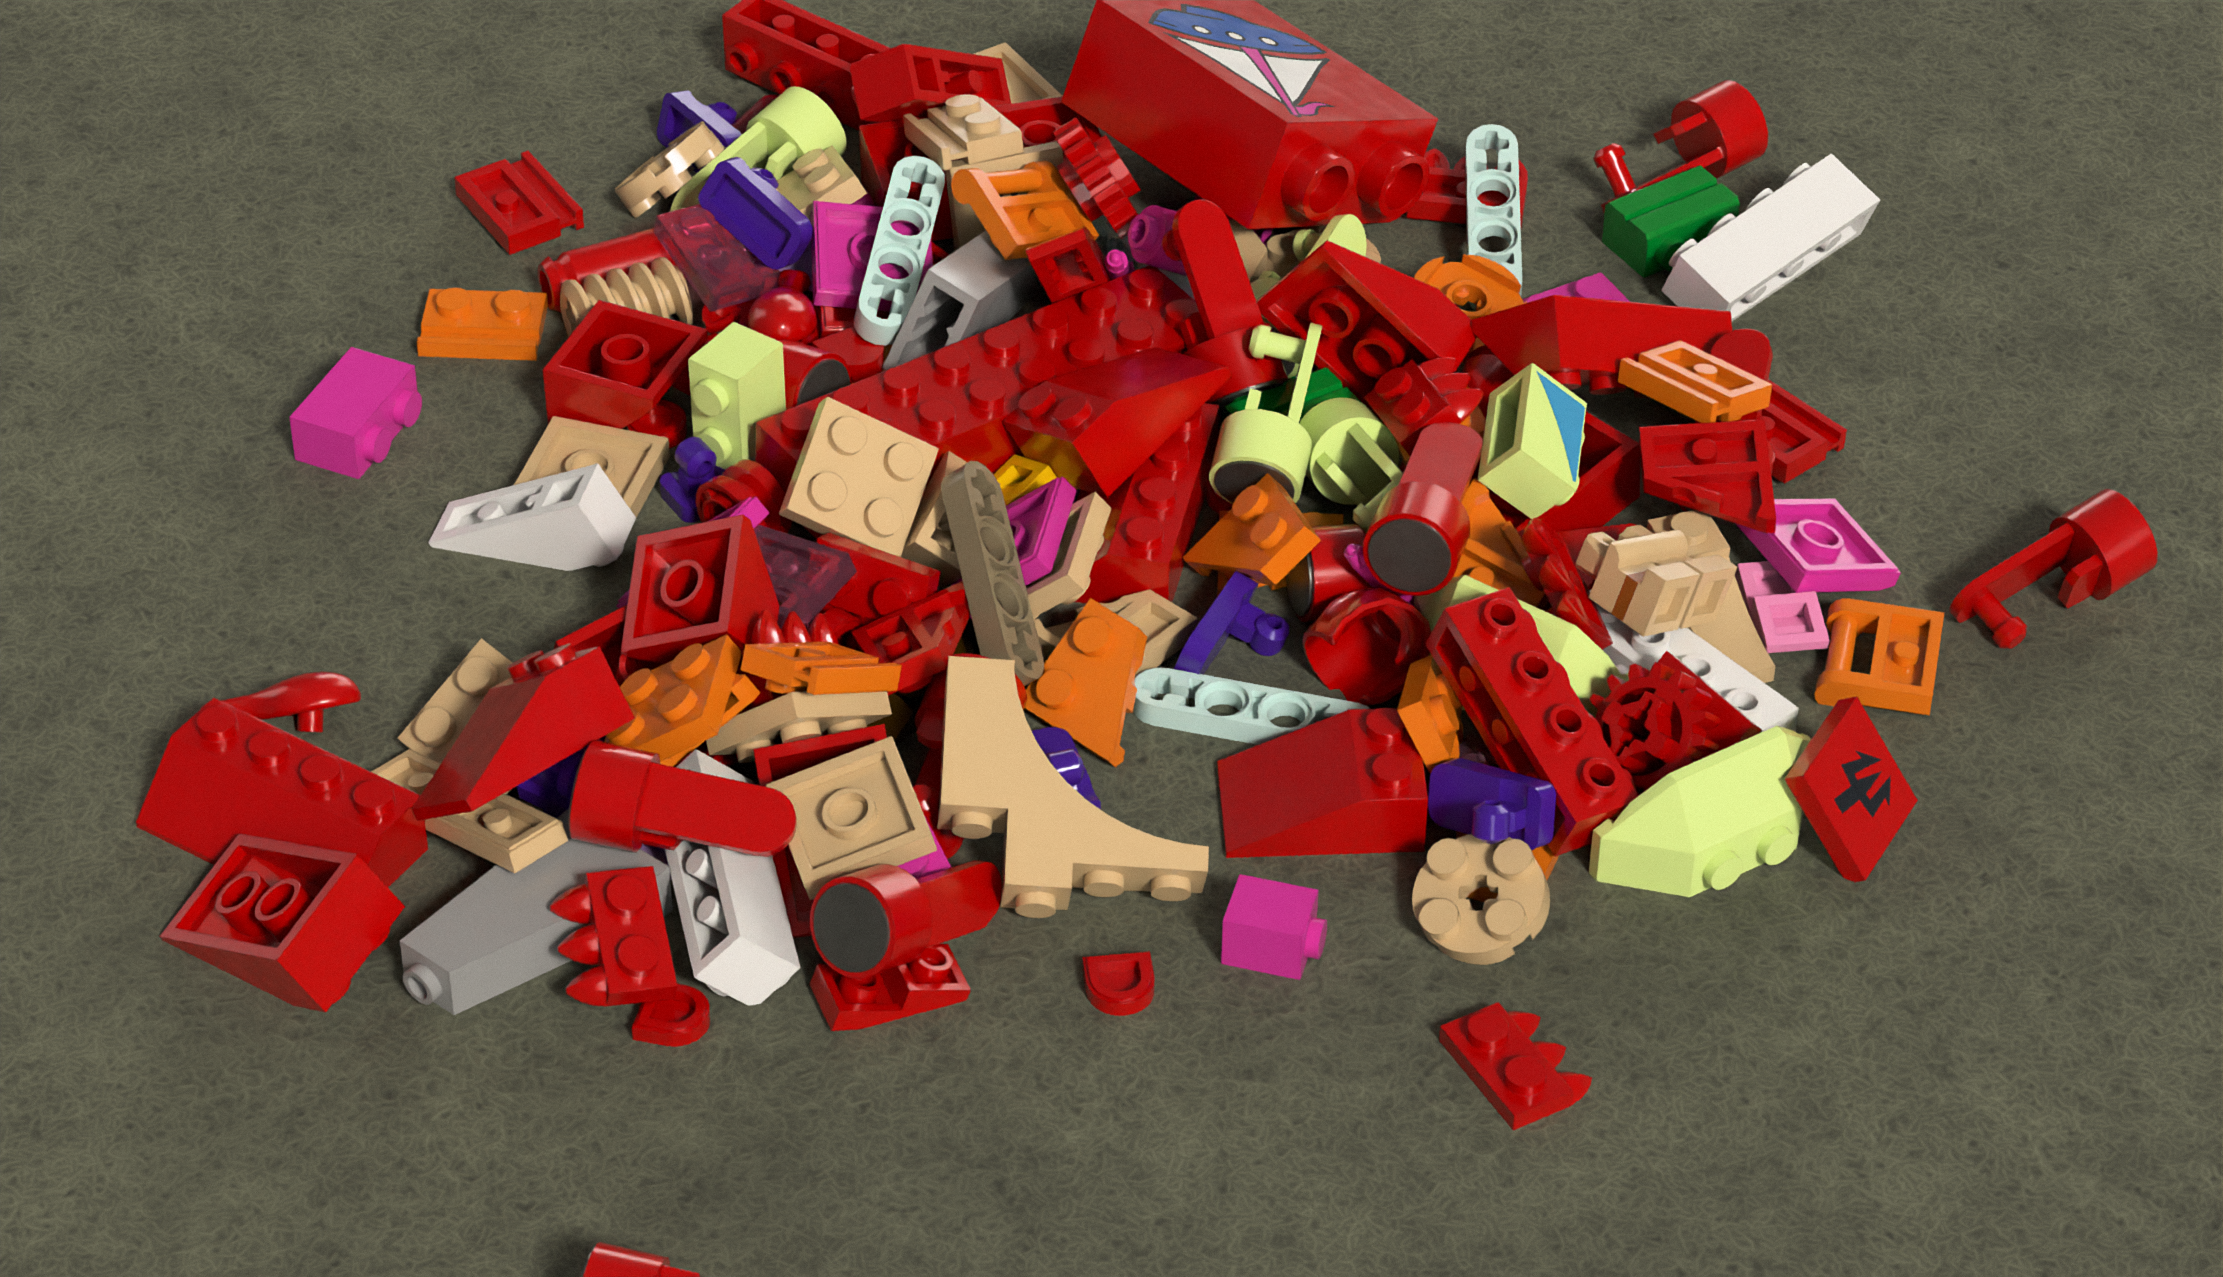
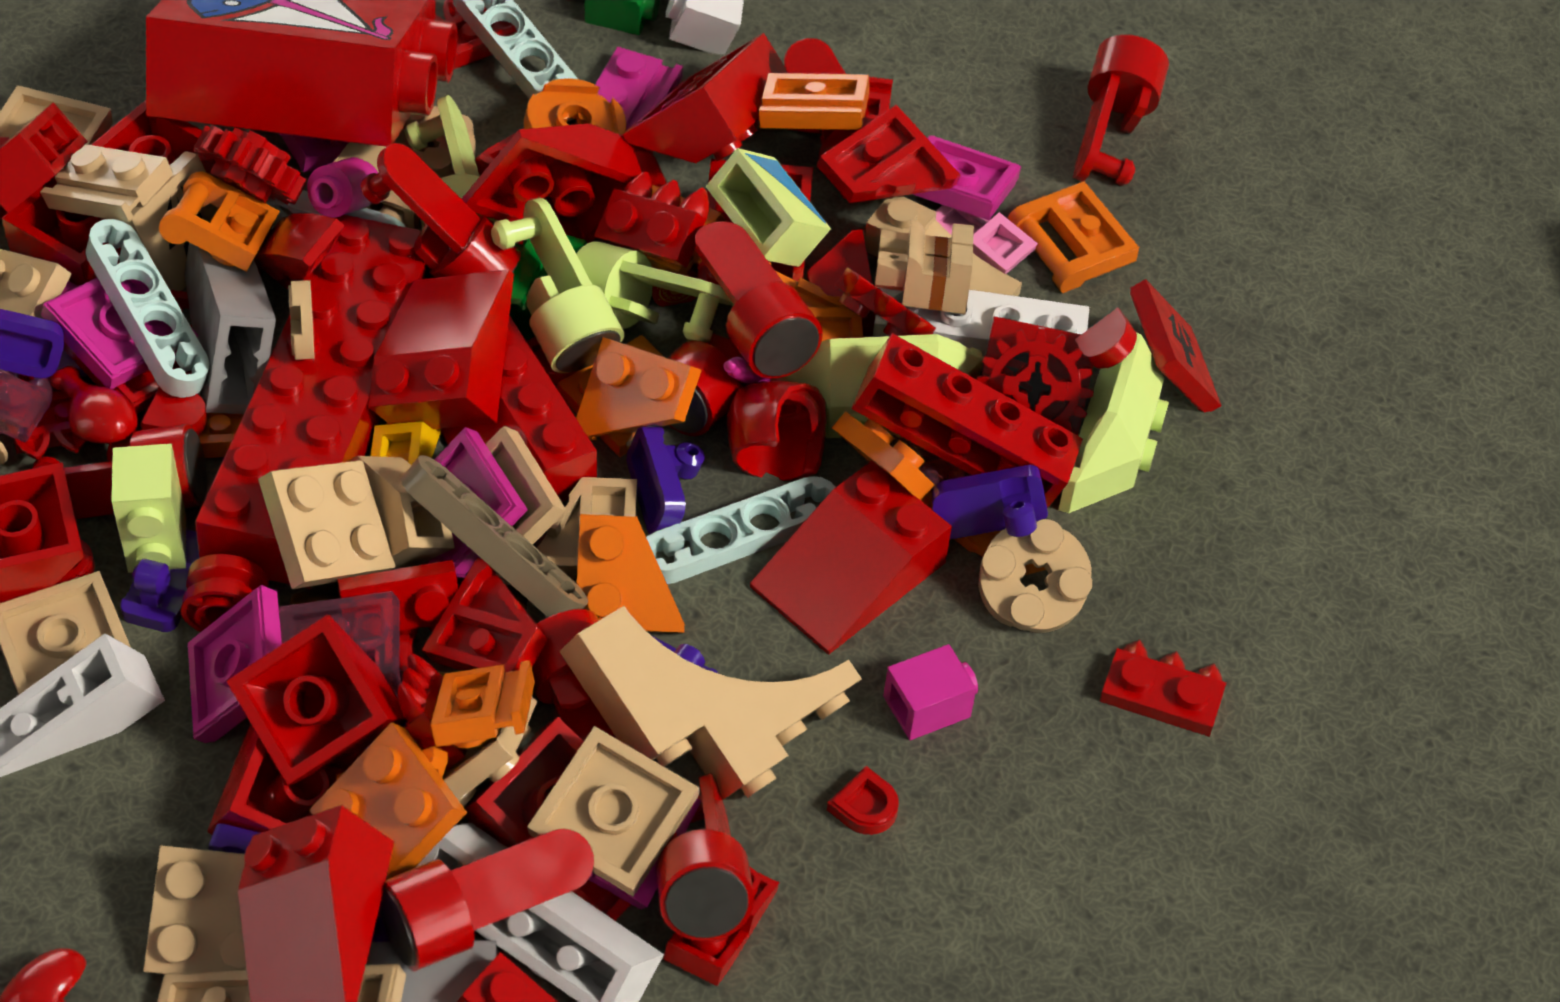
camera: 45 degrees left, 10 degrees up
(1008, 316) = (301, 319): none -> tan tile
(1747, 720) = (1108, 340): none -> red tile

